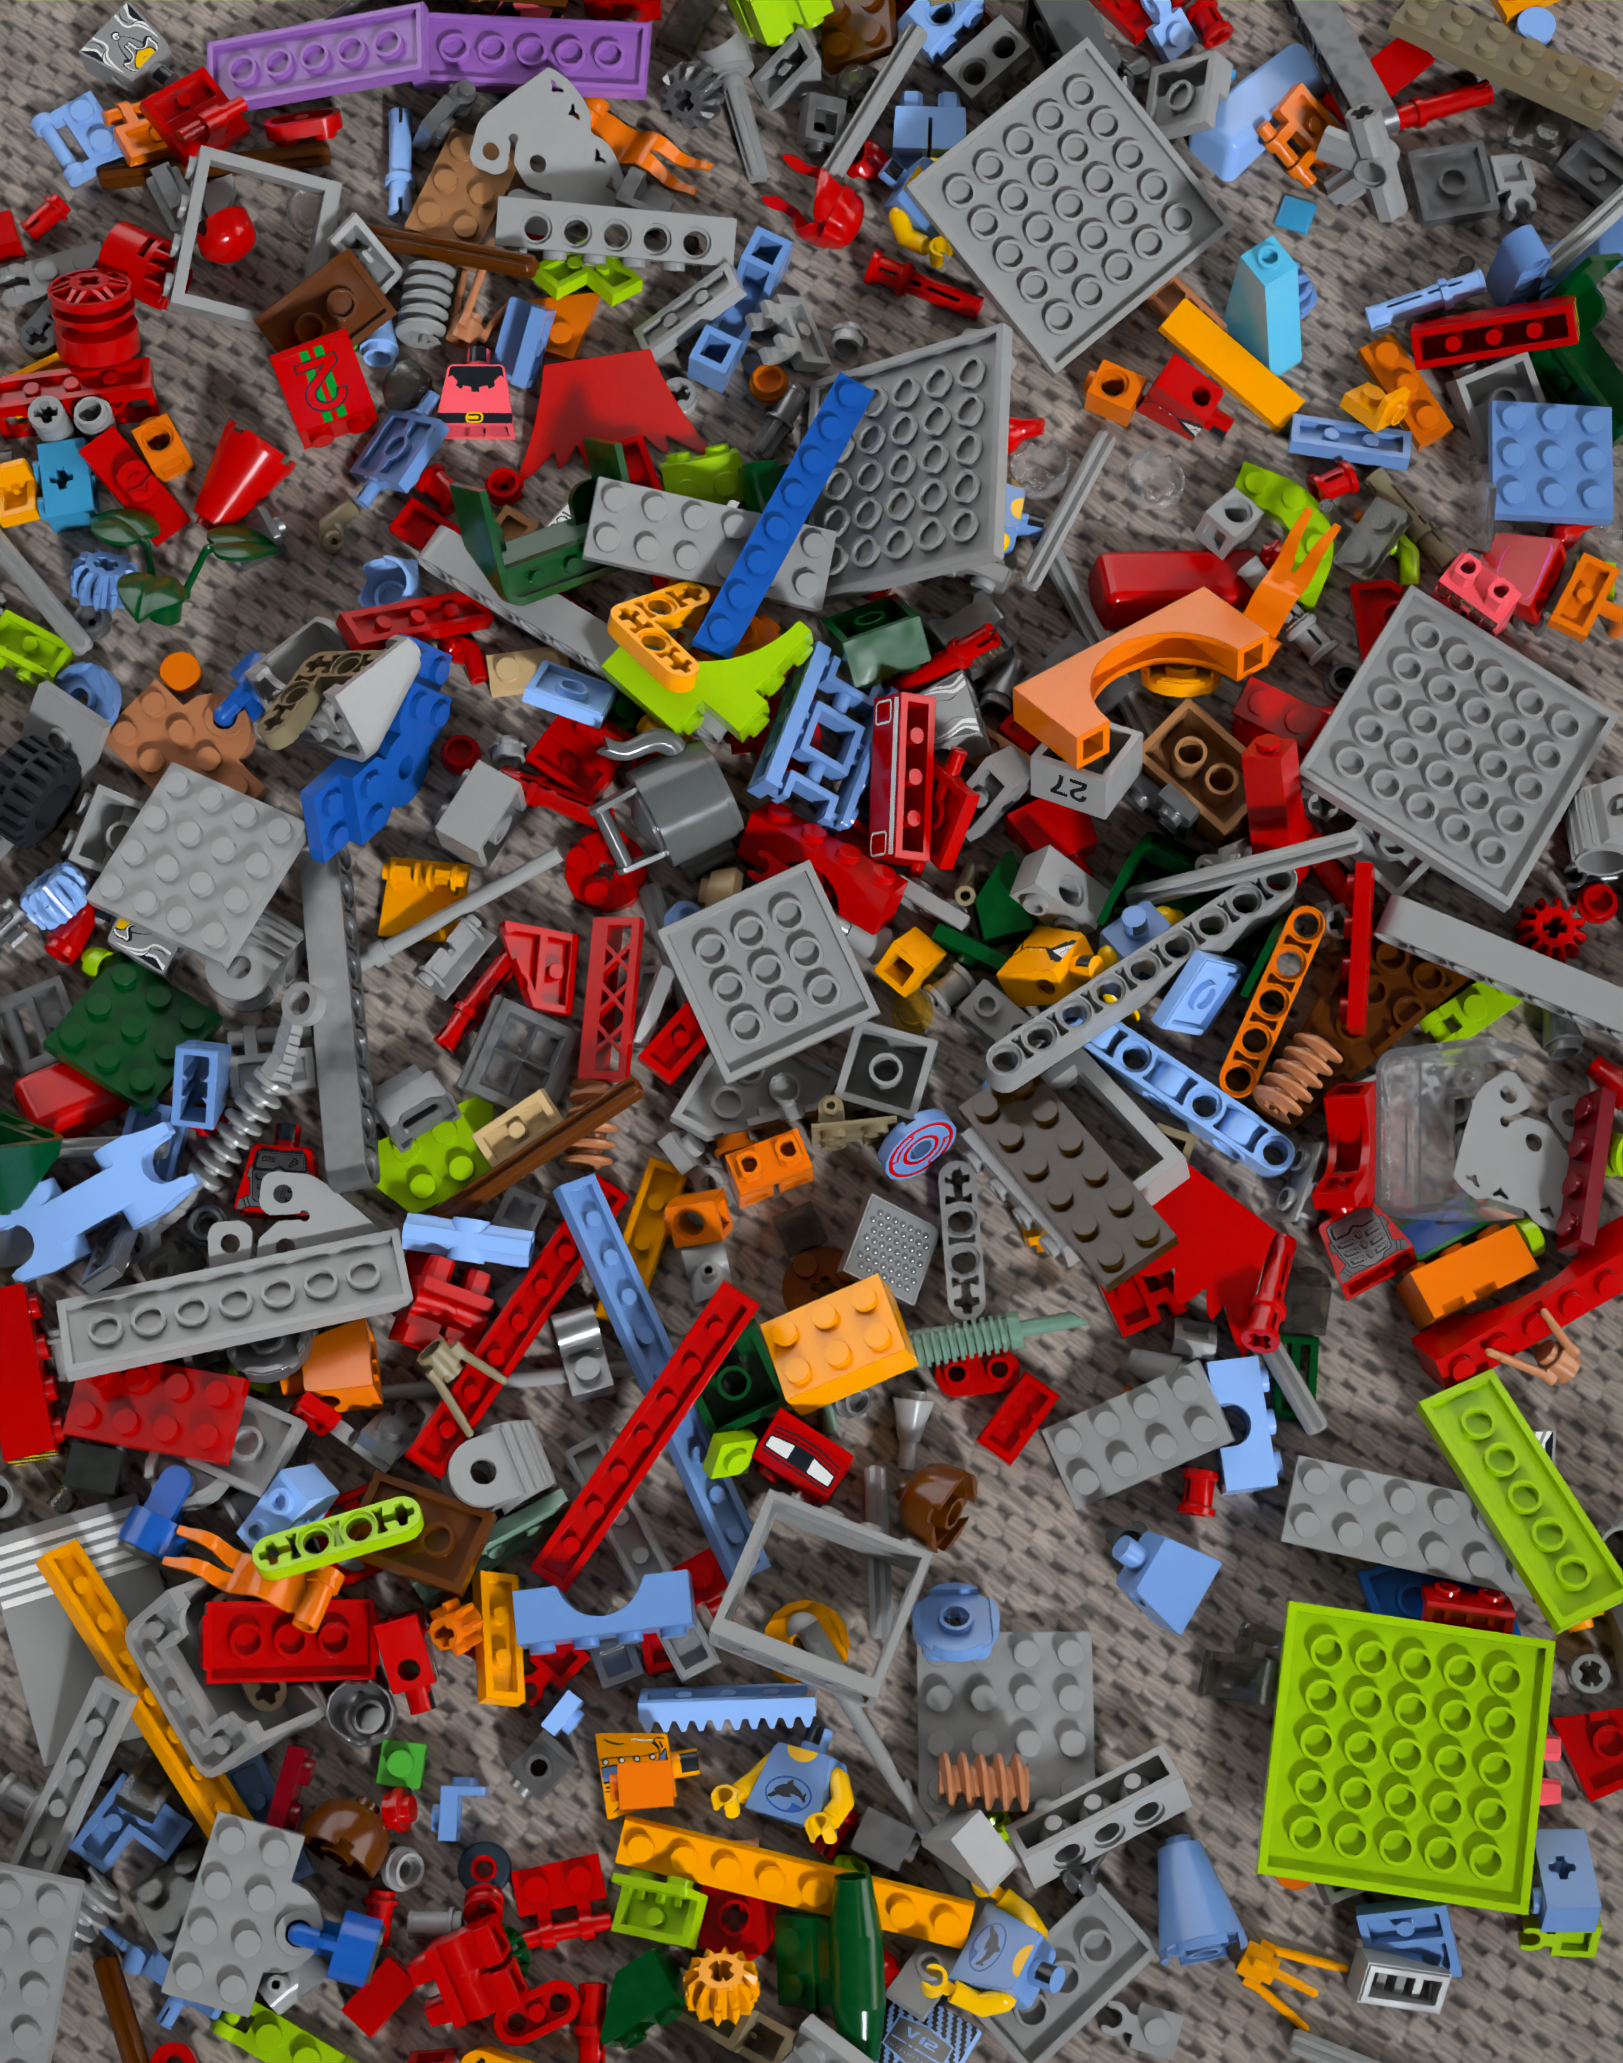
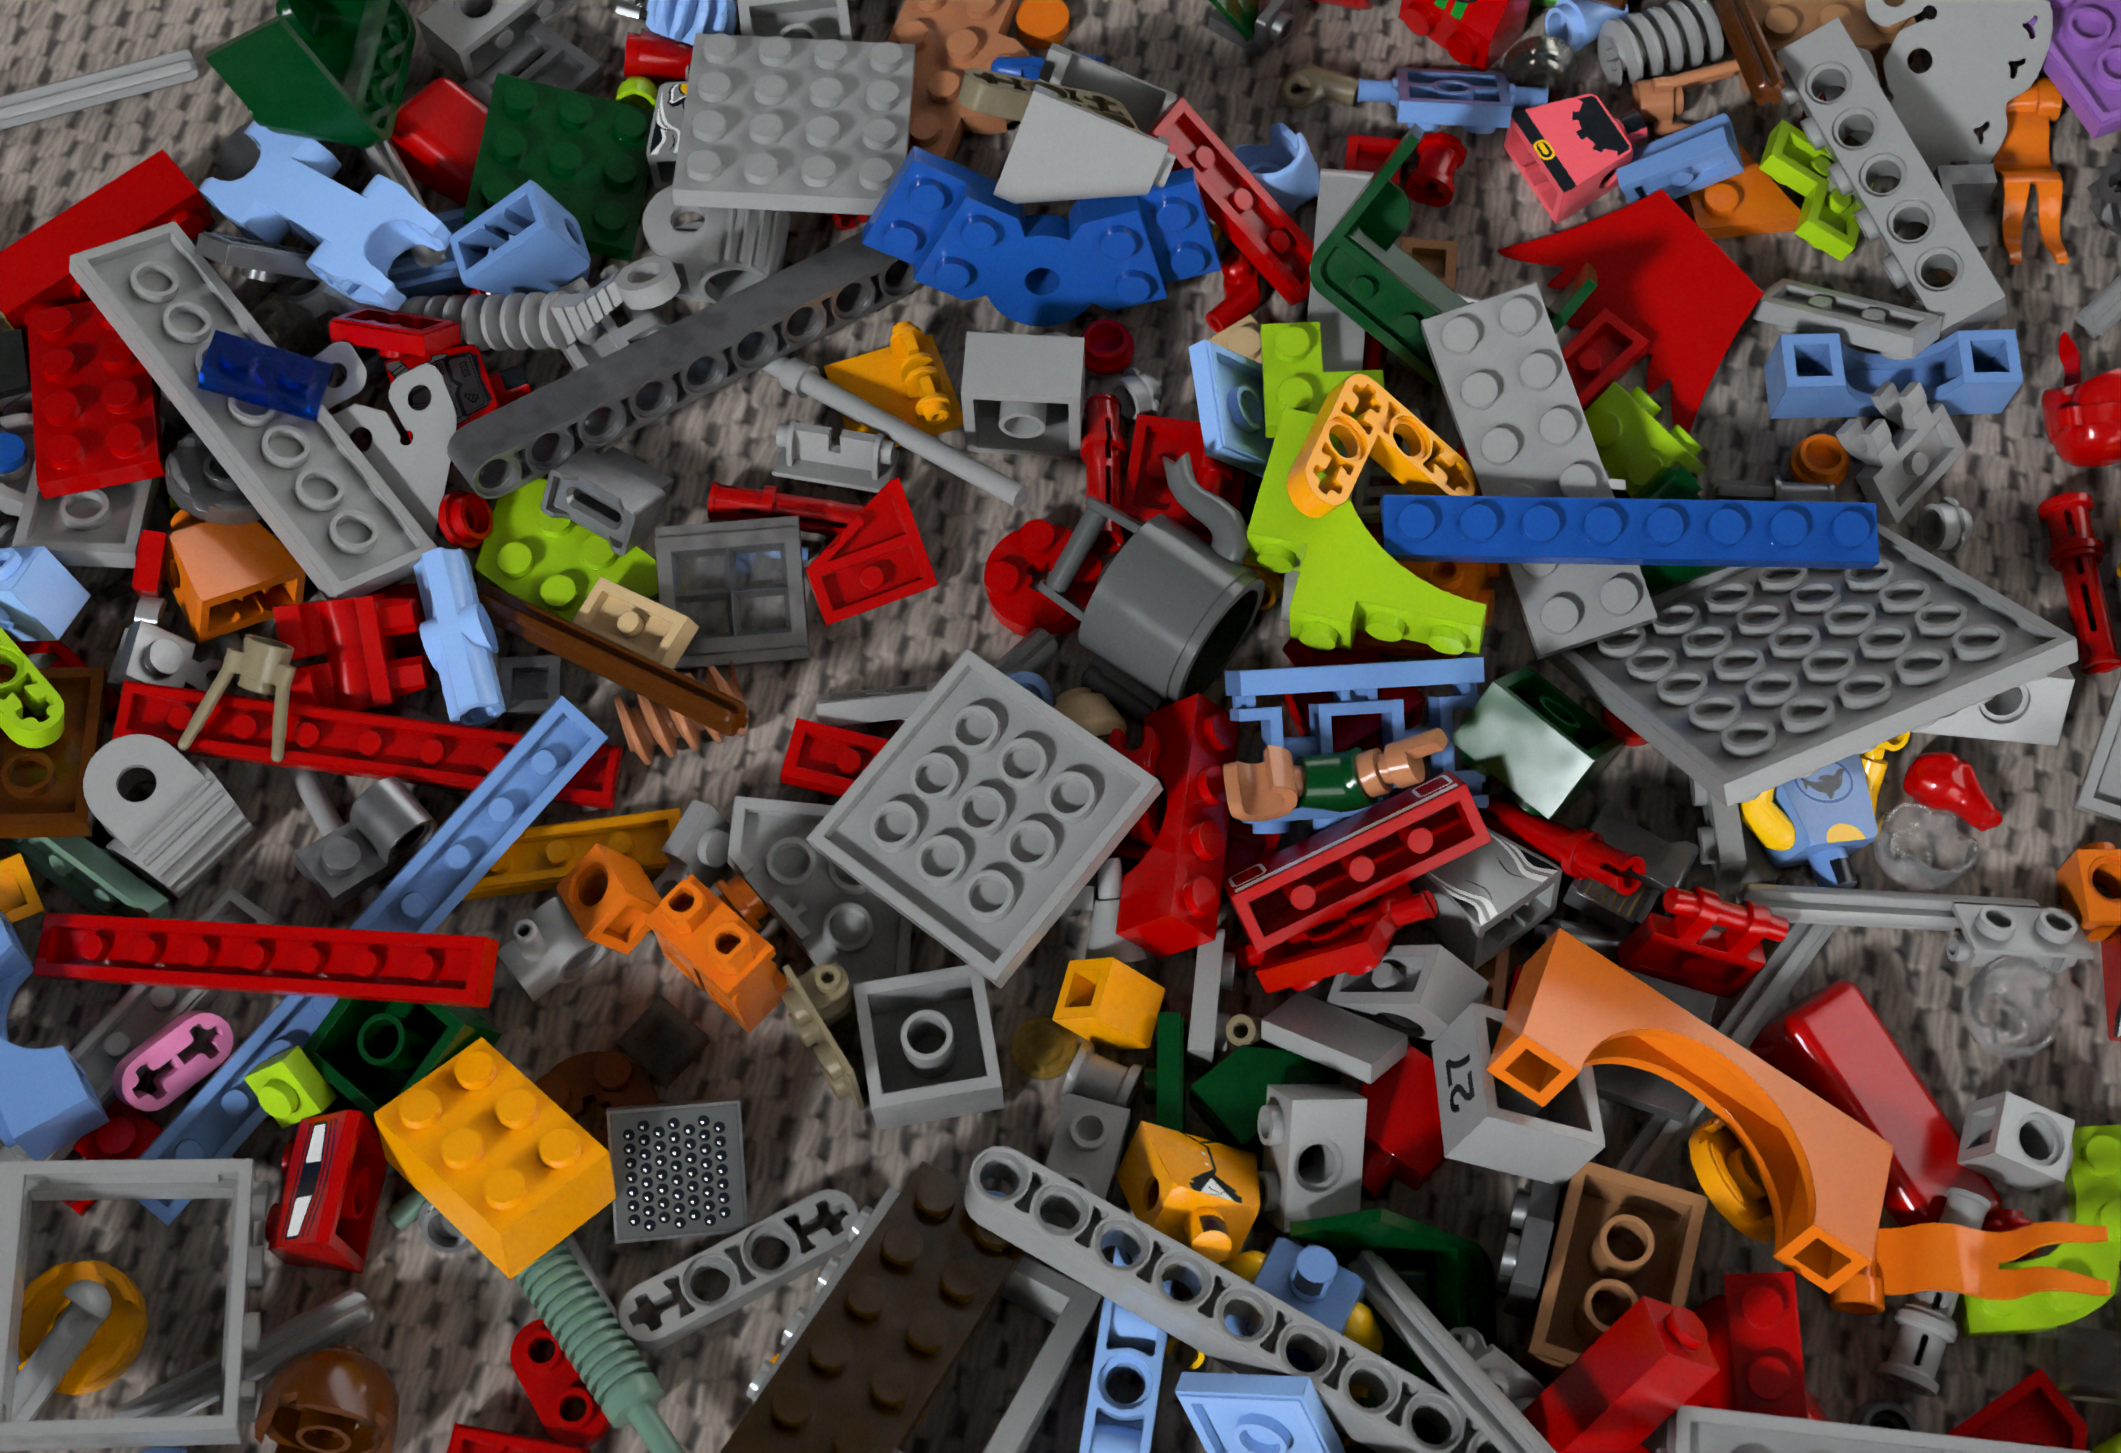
camera: 65 degrees right, 10 degrees down
(219, 1191) = (395, 332): none -> red plate
(220, 1283) = (265, 376): none -> clear blue plate
(379, 1205) = (464, 519): none -> red plate
(501, 477) = (1484, 222): red plate -> none
(572, 651) = (1295, 372): none -> lime plate
(603, 997) = (860, 653): red fence -> none
(667, 1525) = (163, 1049): none -> bright pink beam
(682, 384) = (1742, 361): light grey bush -> none
(849, 766) = (1327, 780): none -> nougat piece
(911, 1417) = (459, 1316): light grey cone -> none
(918, 1145) = (844, 1136): medium blue tile -> none
(997, 846) = (1334, 1037): none -> light grey tile
(1041, 619) = (1691, 953): none -> red plate
(1116, 452) = (2044, 934): none -> light grey hinge

